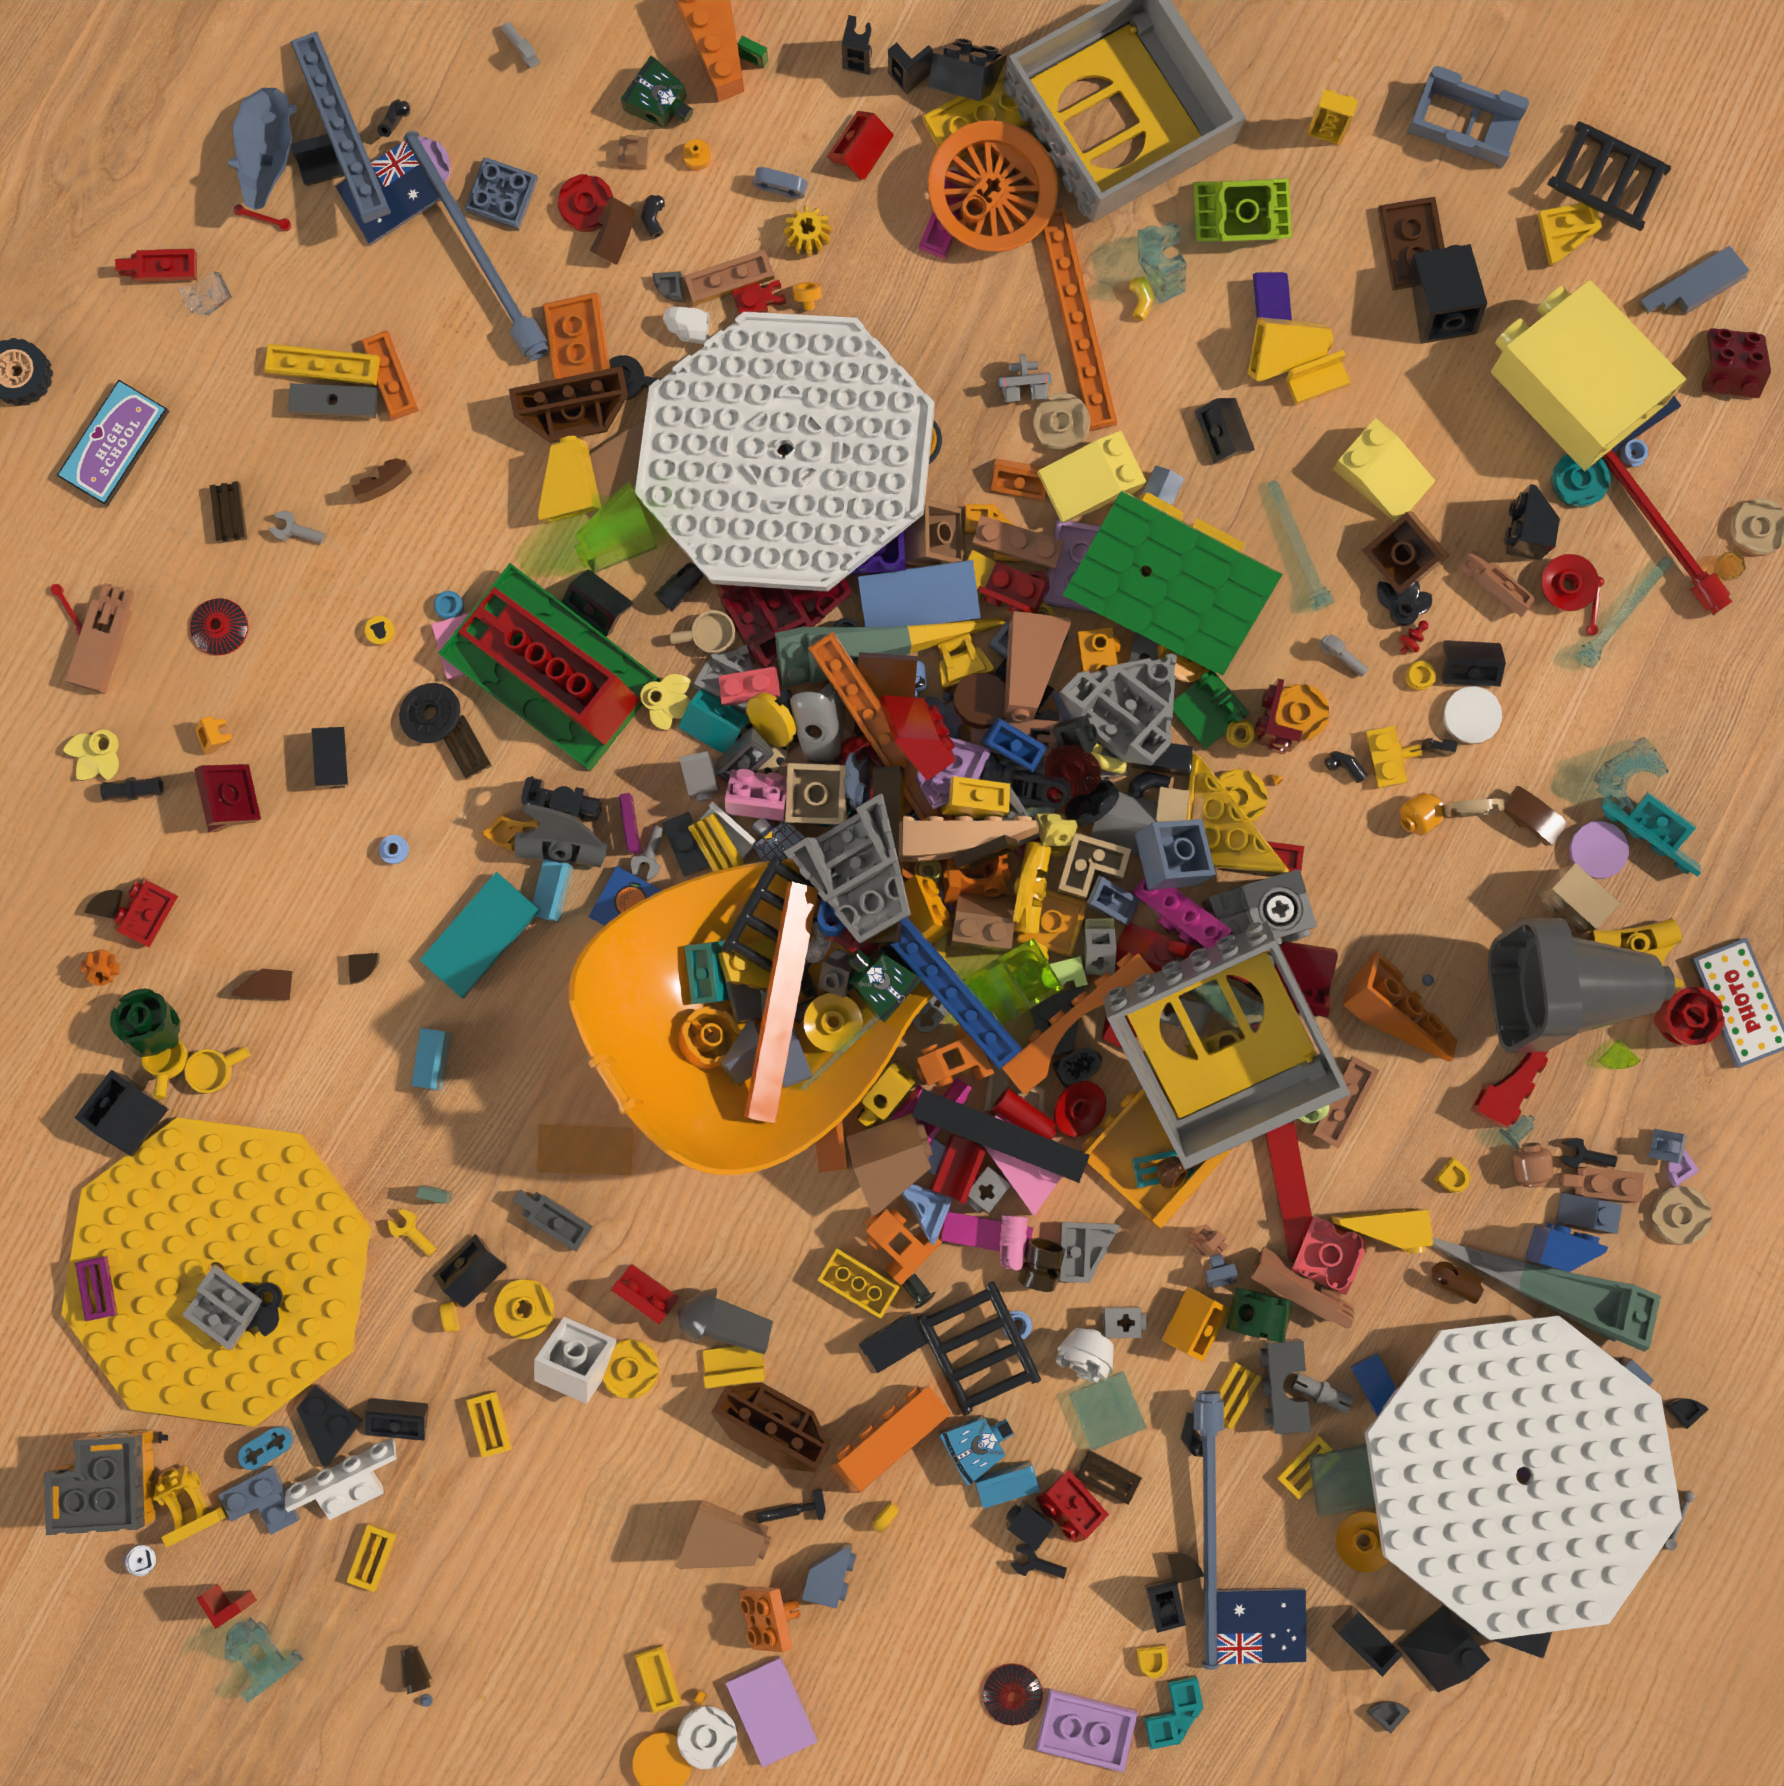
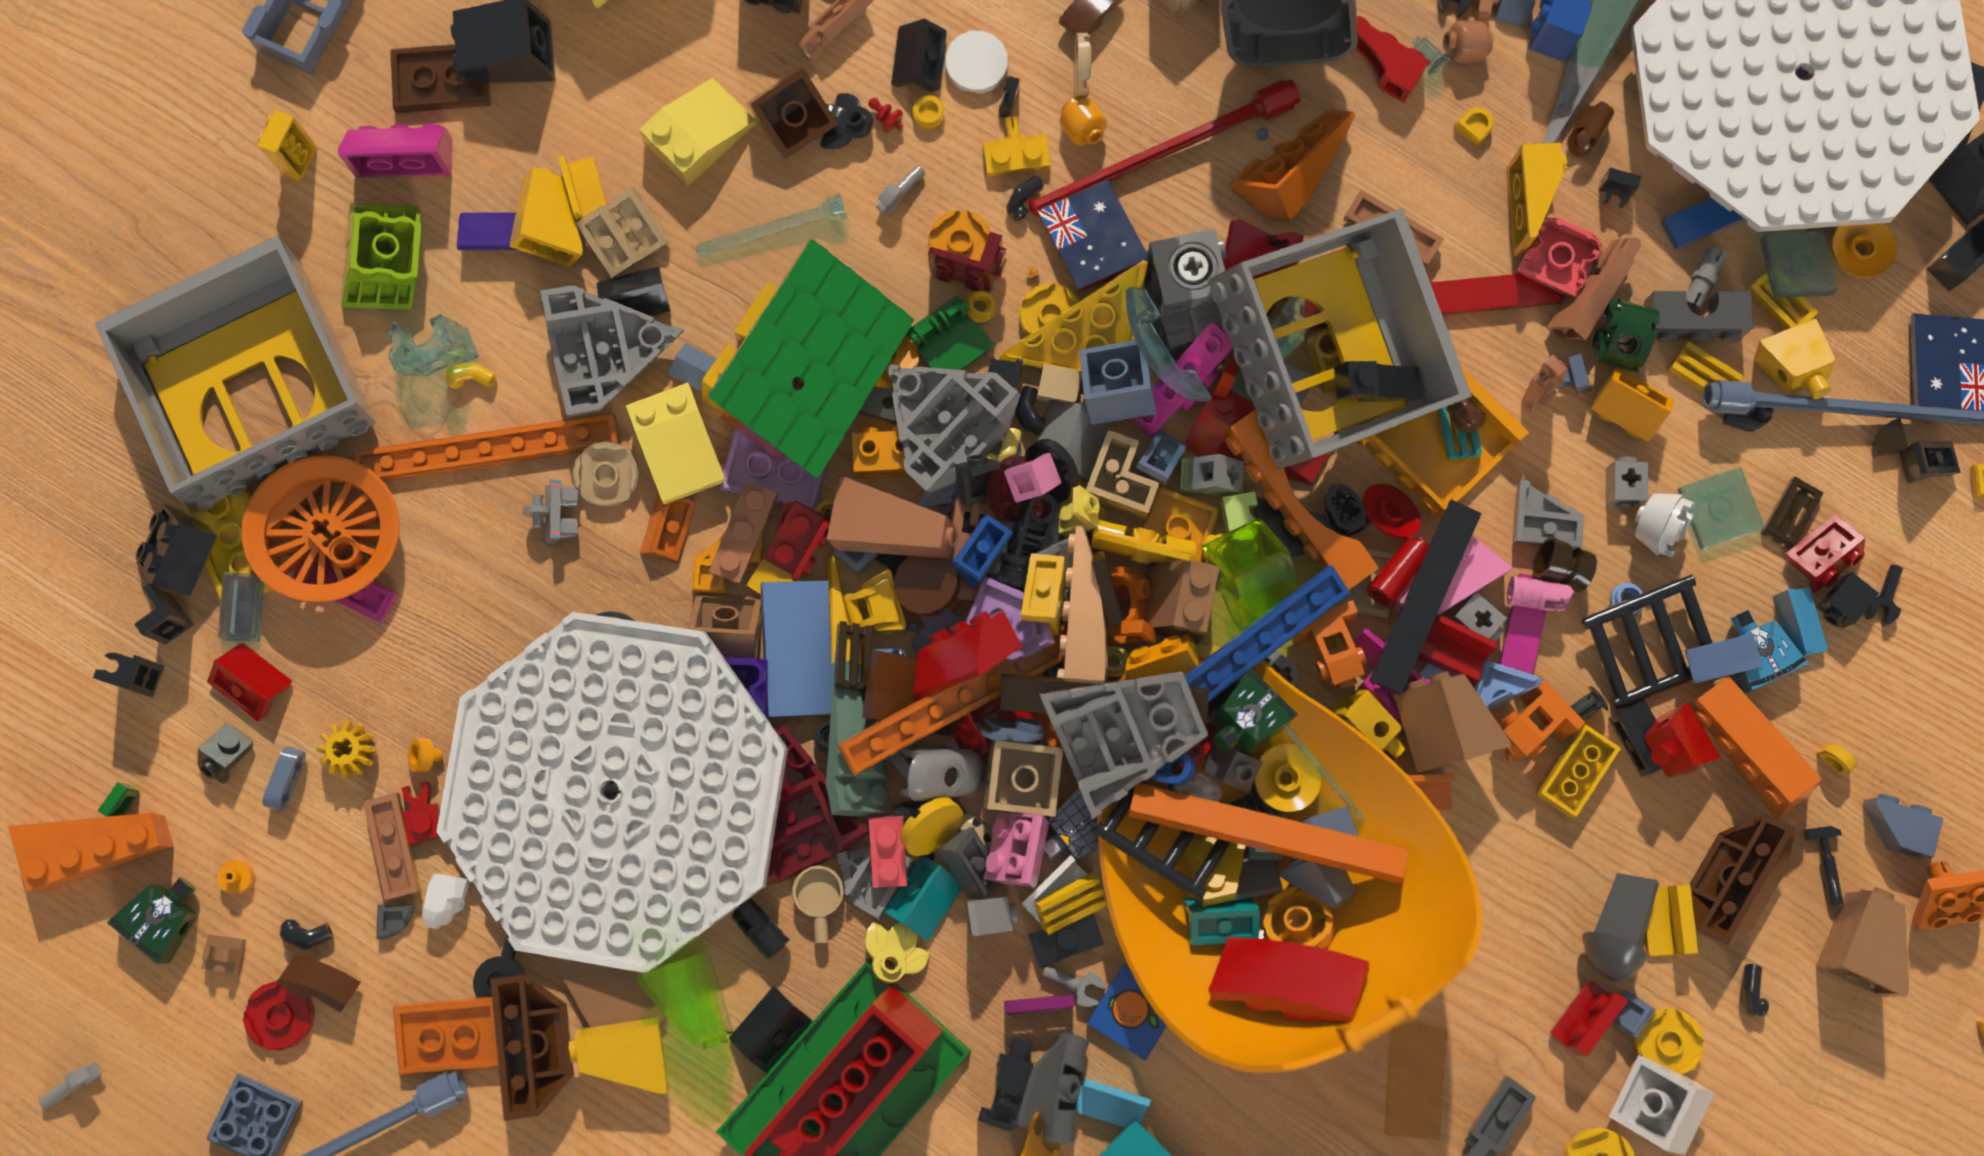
camera: 90 degrees left, 5 degrees down
(650, 1334) = (1634, 1016): none -> sand blue tile
(657, 1024) = (1289, 978): none -> red slope
(677, 1439) = (1751, 991): none -> black arm
(798, 130) = (222, 752): none -> pearl dark grey bracket
(888, 1370) = (1680, 742): none -> red torso
(922, 129) = (240, 607): none -> clear light blue slope
(937, 643) = (866, 645): none -> dark brown tile
(966, 1408) = (1723, 658): none -> medium blue slope
(1080, 785) = (1032, 478): none -> bright pink panel
(1173, 403) = (598, 346): none -> light grey wedge
(1192, 1085) = (1376, 382): none -> black slope
(1236, 868) = (1141, 315): none -> clear light blue slope
(1250, 1478) = (1798, 359): none -> yellow torso
(1281, 415) = (622, 232): none -> tan slope
(1330, 824) = (1090, 221): none -> flag
(1339, 212) = (397, 151): none -> dark pink slope
(1406, 1310) = (1619, 184): none -> black tile

